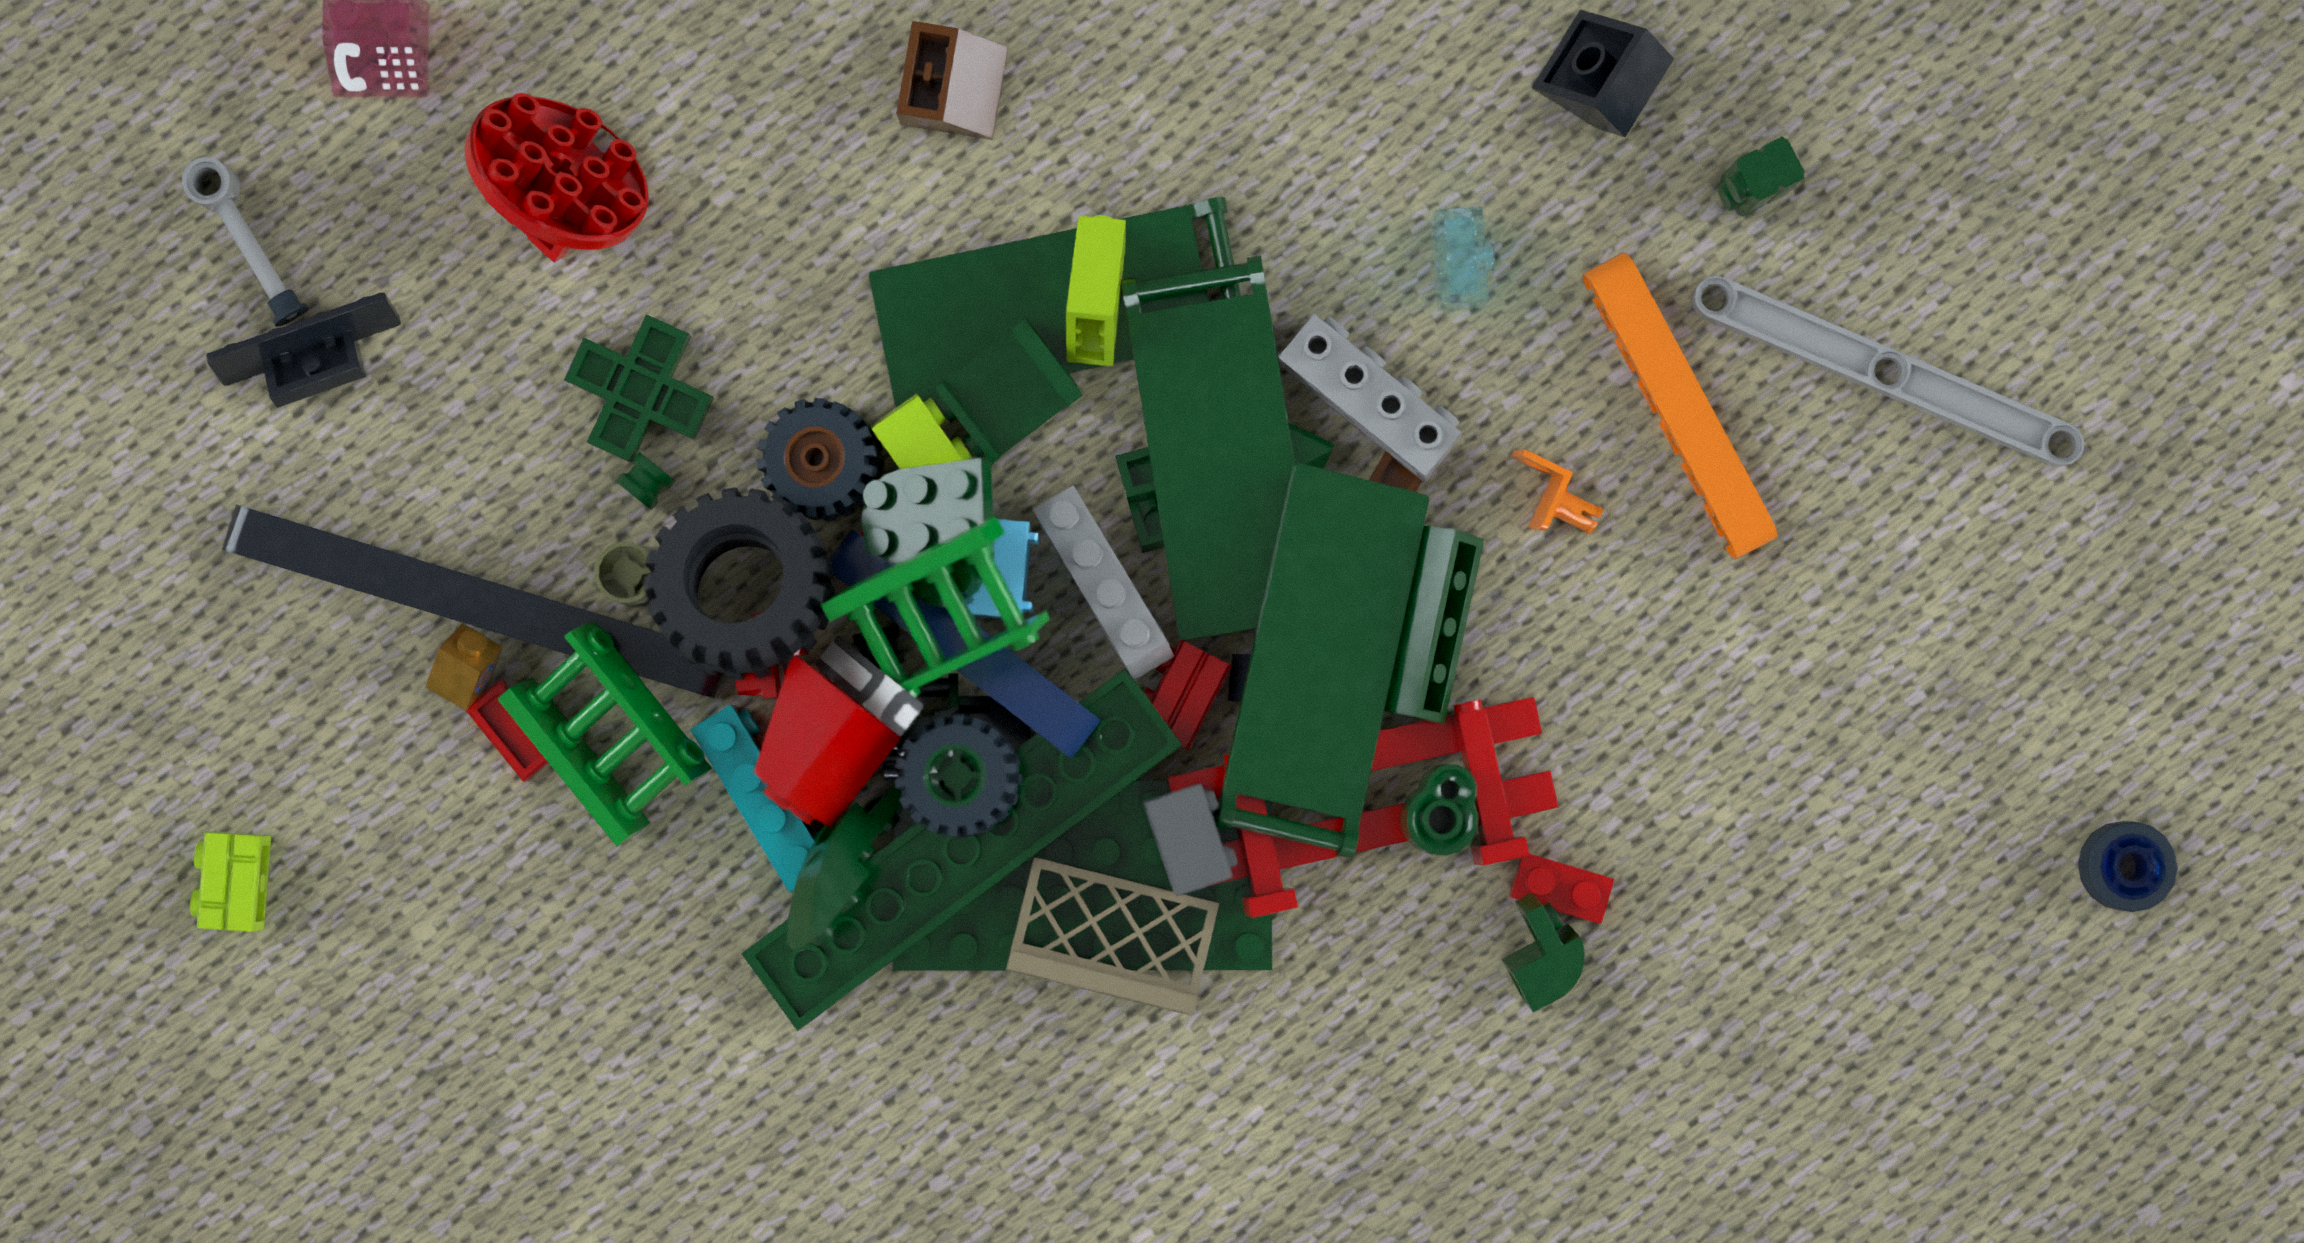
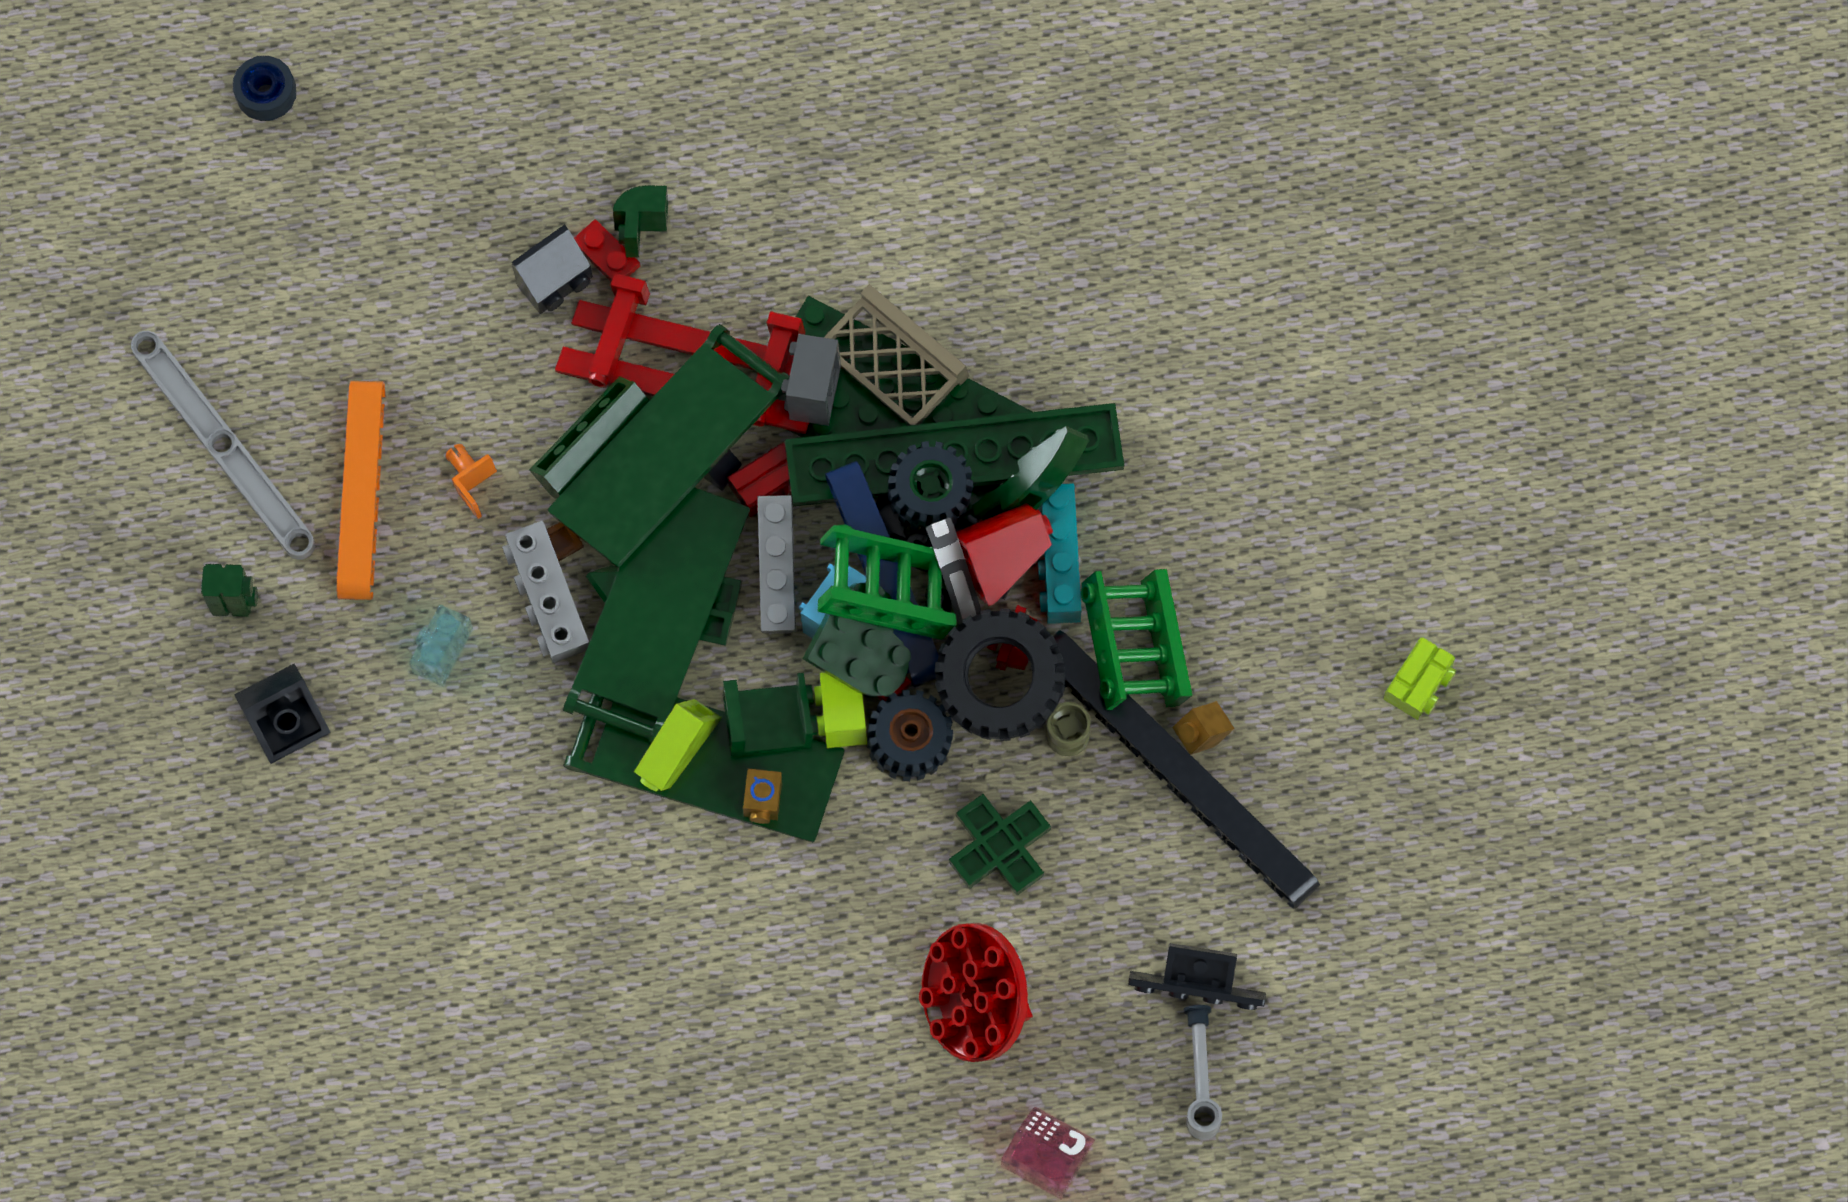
camera: 145 degrees left, 15 degrees down
(505, 733) = (1200, 678): red tile -> none
(645, 480) = (1027, 784): dark green wheel -> none
(951, 81) = (693, 926): reddish brown slope -> none
(956, 284) = (762, 795): none -> pearl gold brick
(1441, 811) = (651, 325): dark green piece -> none
(1609, 816) = (552, 270): none -> slope

